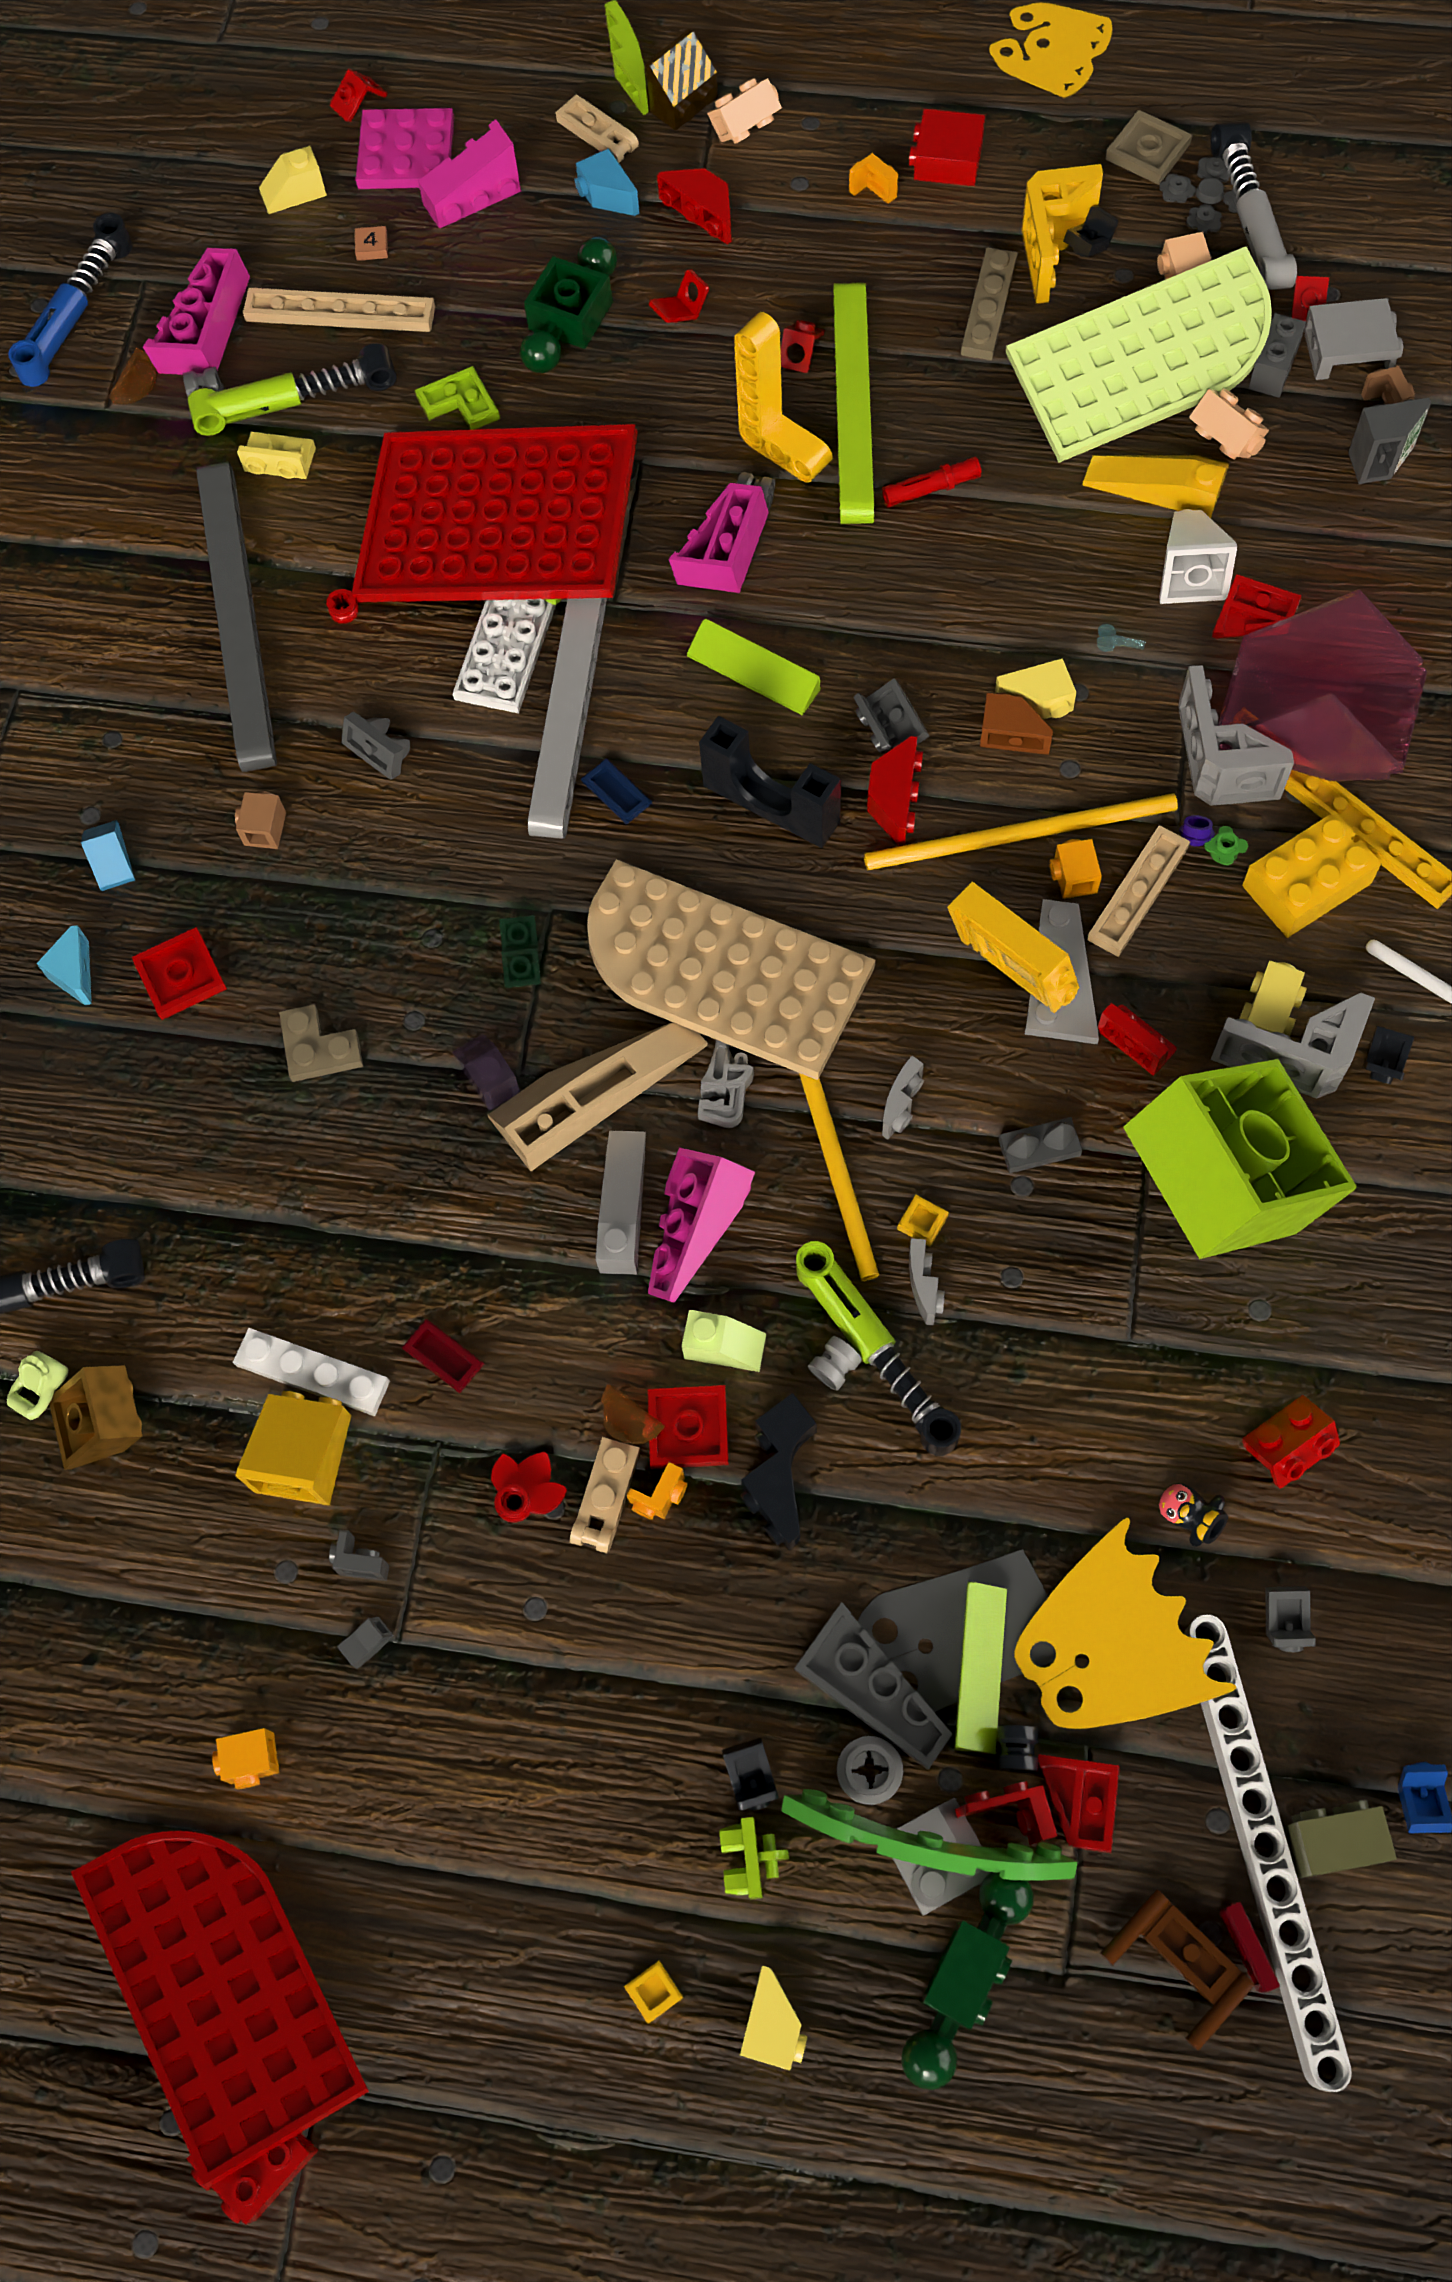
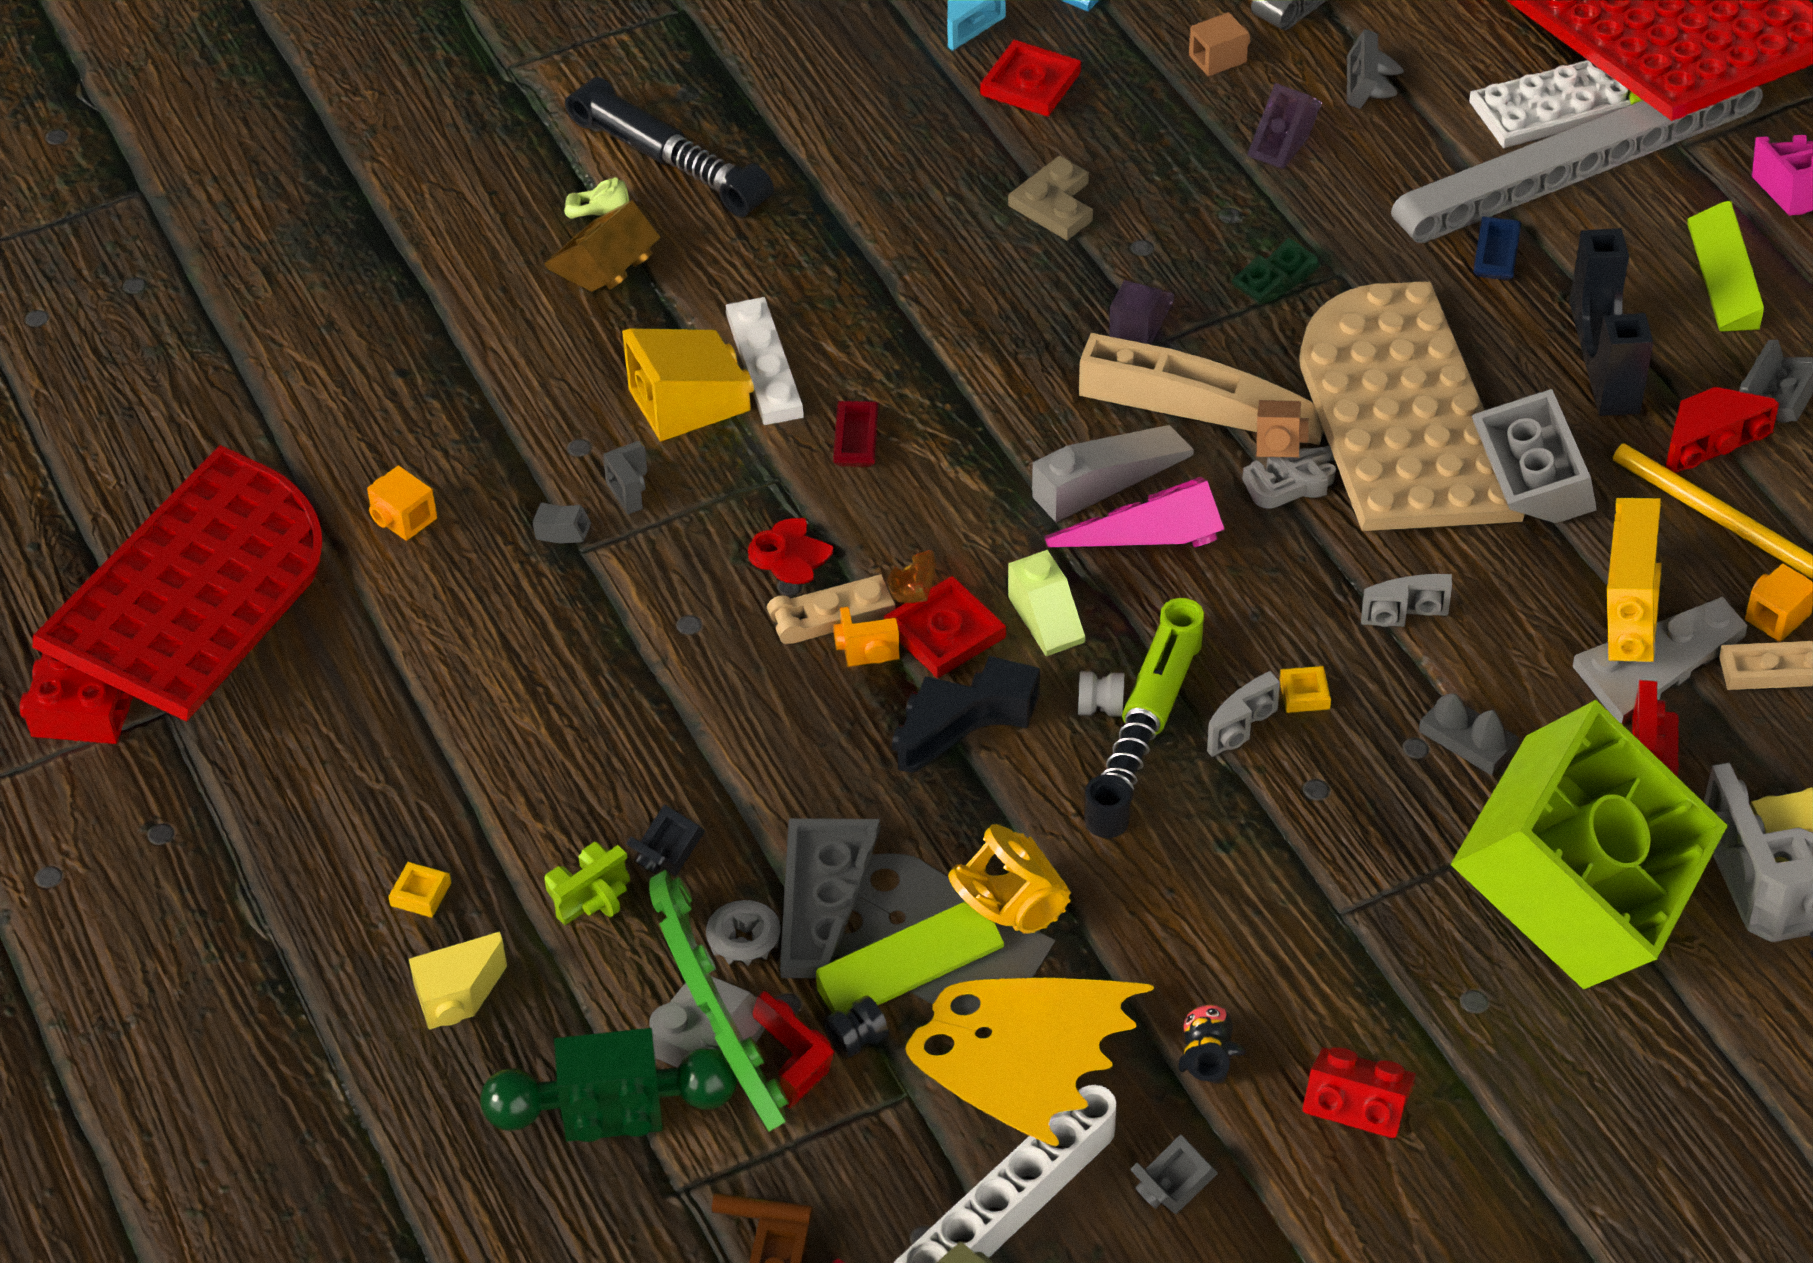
camera: 50 degrees right, 20 degrees down
(385, 840) = (1284, 126): none -> clear purple slope
(692, 1066) = (1280, 428): none -> medium nougat brick
(840, 1178) = (1286, 606): yellow piece -> none
(845, 921) = (1536, 458): none -> light grey slope
(975, 1549) = (1023, 898): none -> yellow piece
(1084, 1800) = (851, 1108): red wing -> none

